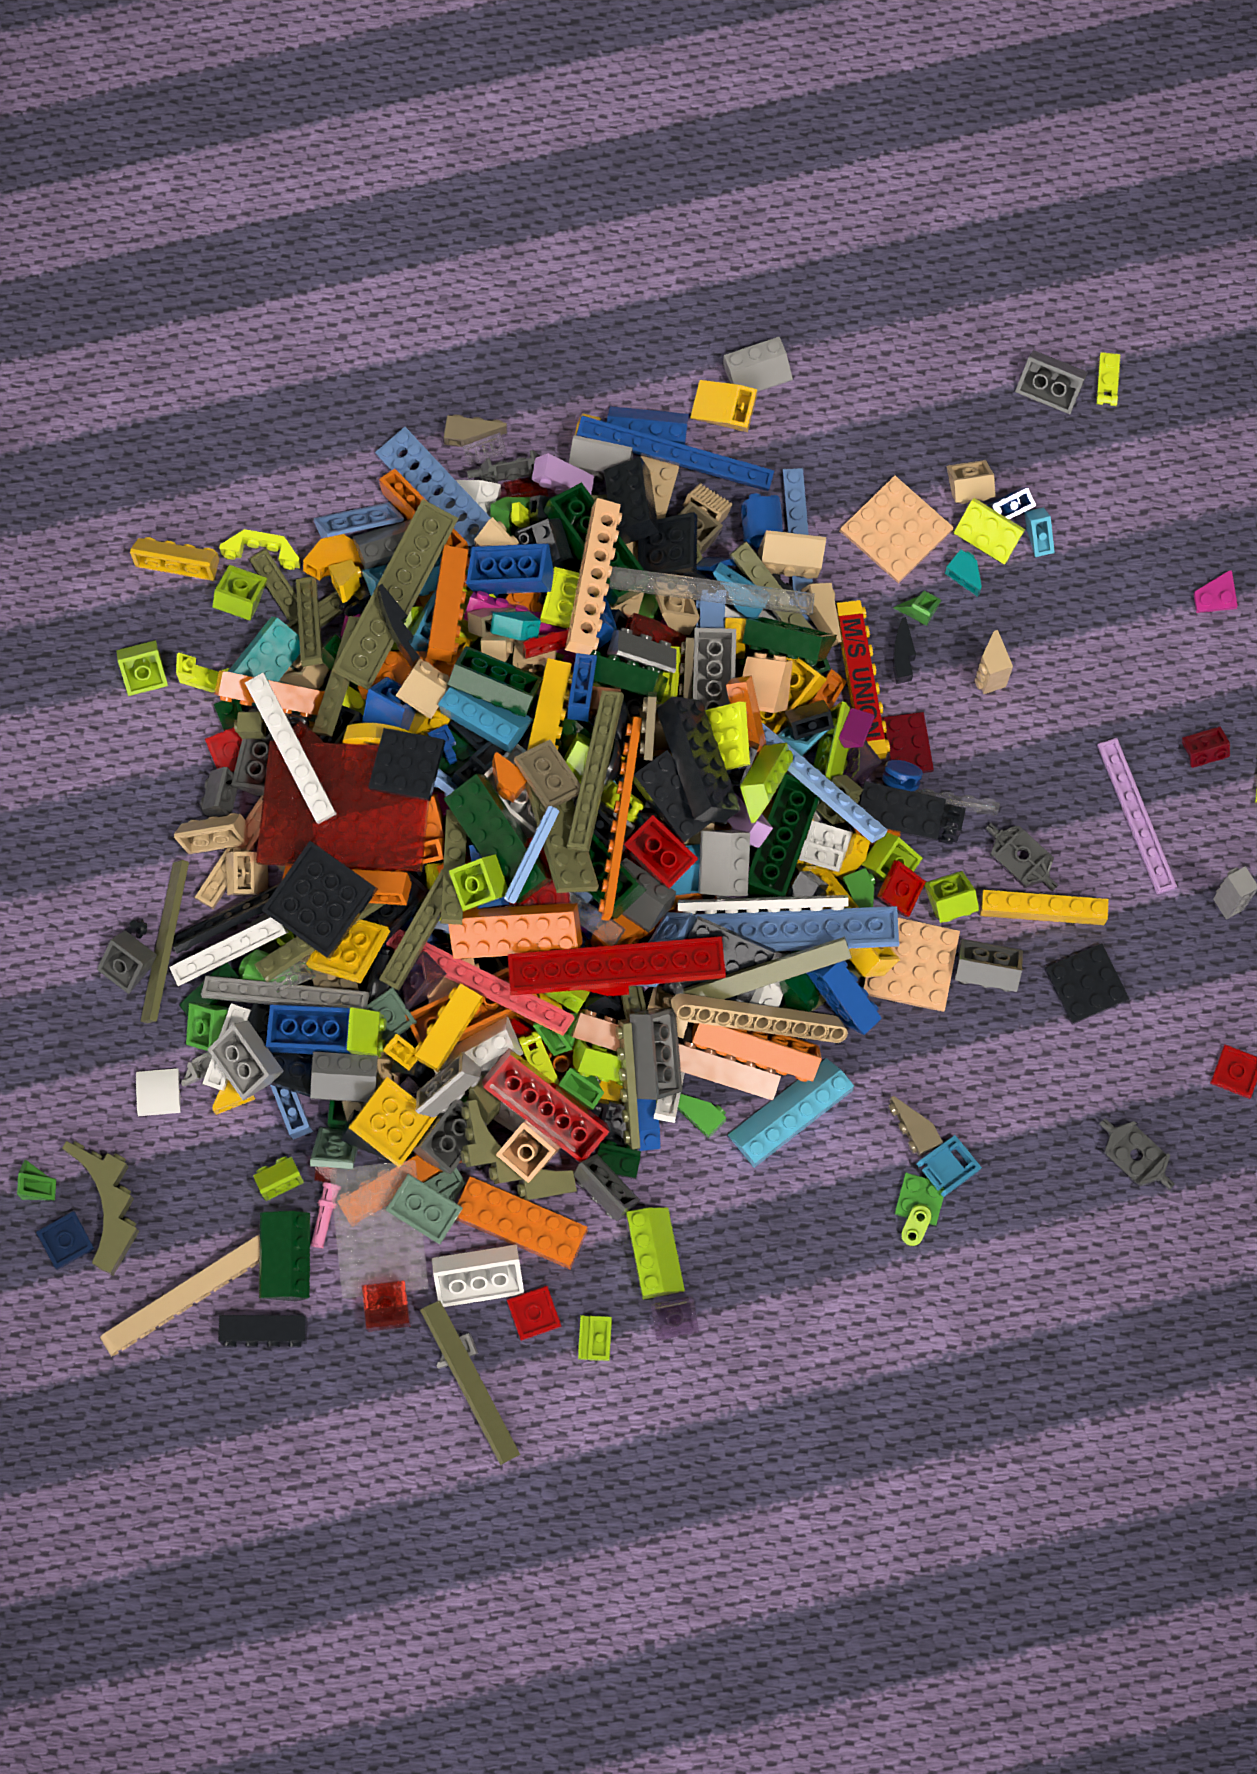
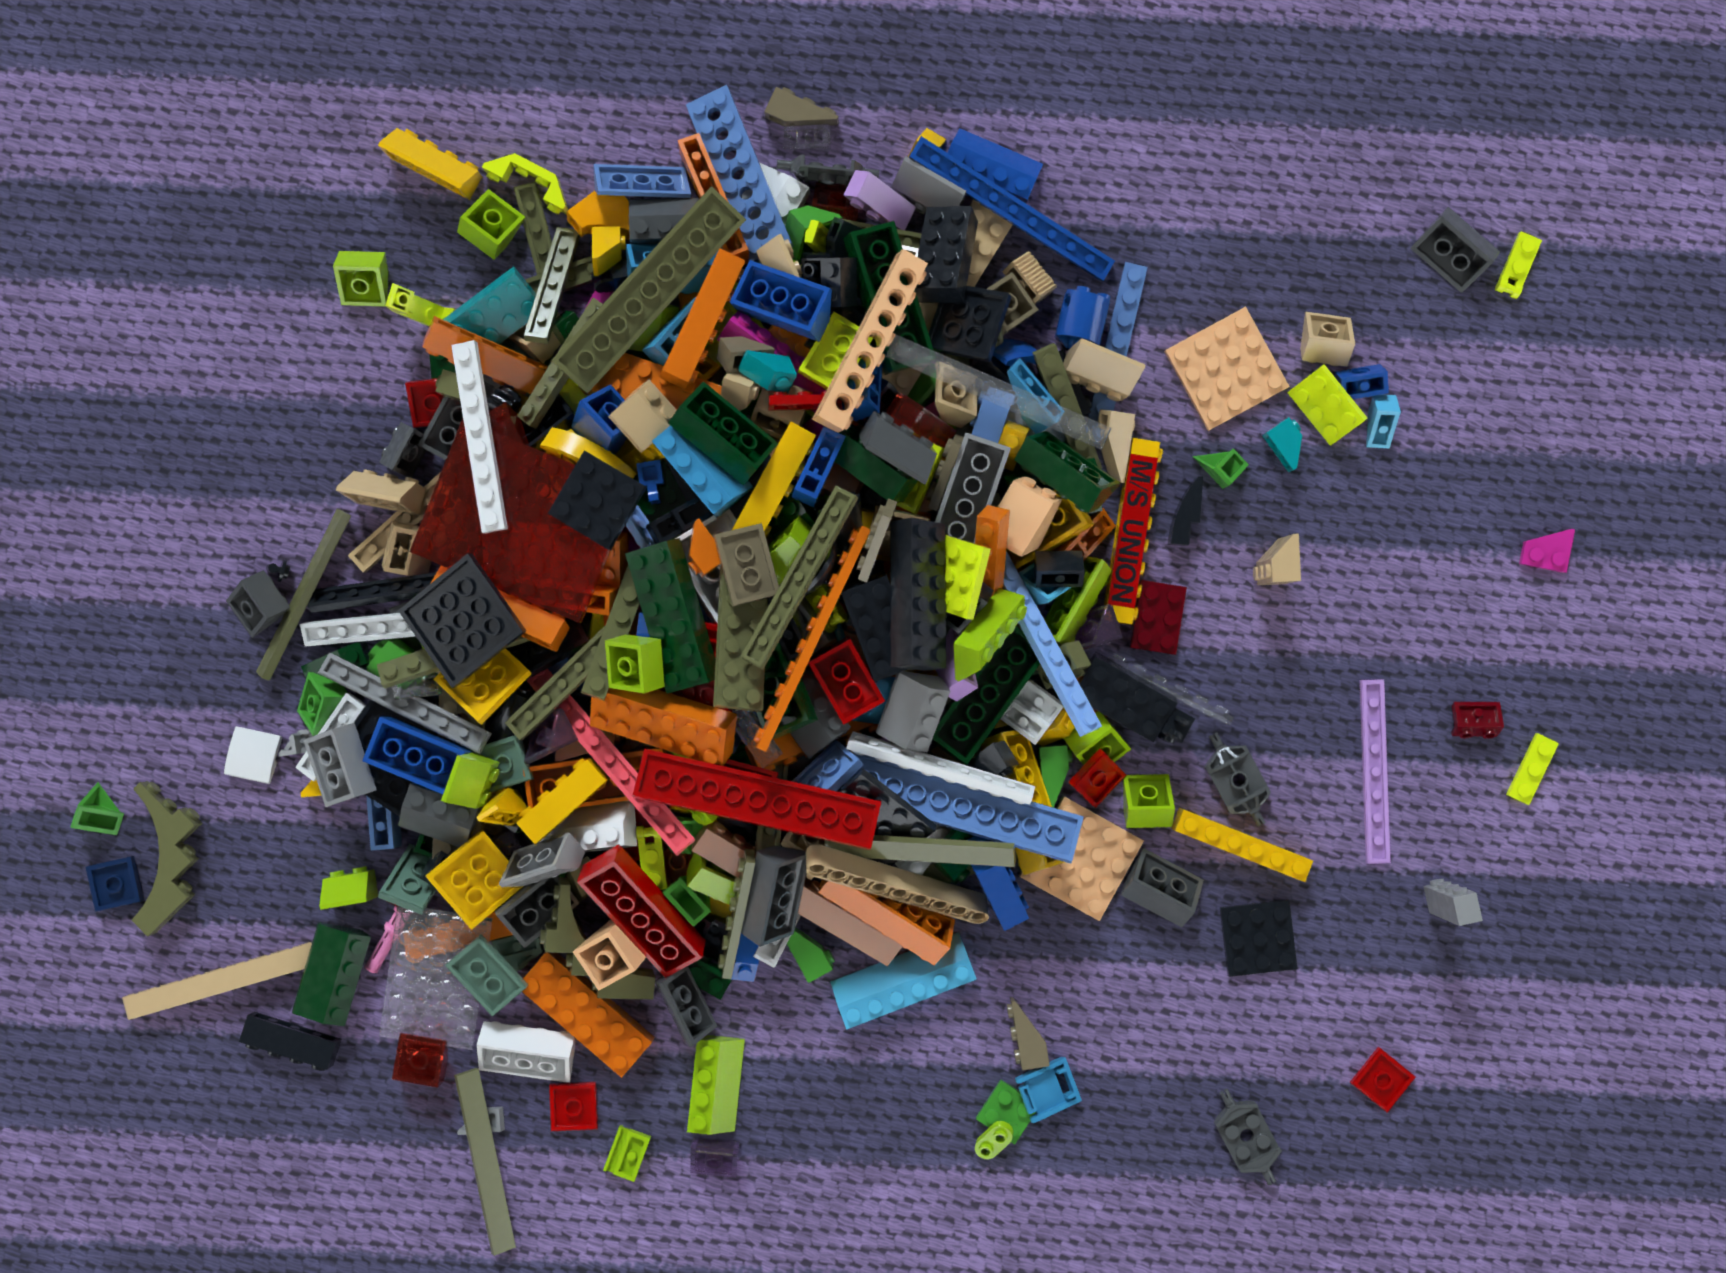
camera: 15 degrees right, 15 degrees up
(395, 619) = (636, 322): black slope -> none
(531, 854) = (699, 653): light blue axle -> none
(724, 404) = (1085, 166): yellow slope -> none
(759, 365) = (1136, 133): light grey slope -> none
(856, 728) = (1107, 592): magenta slope -> none
(902, 775) = (1139, 656): blue head -> none

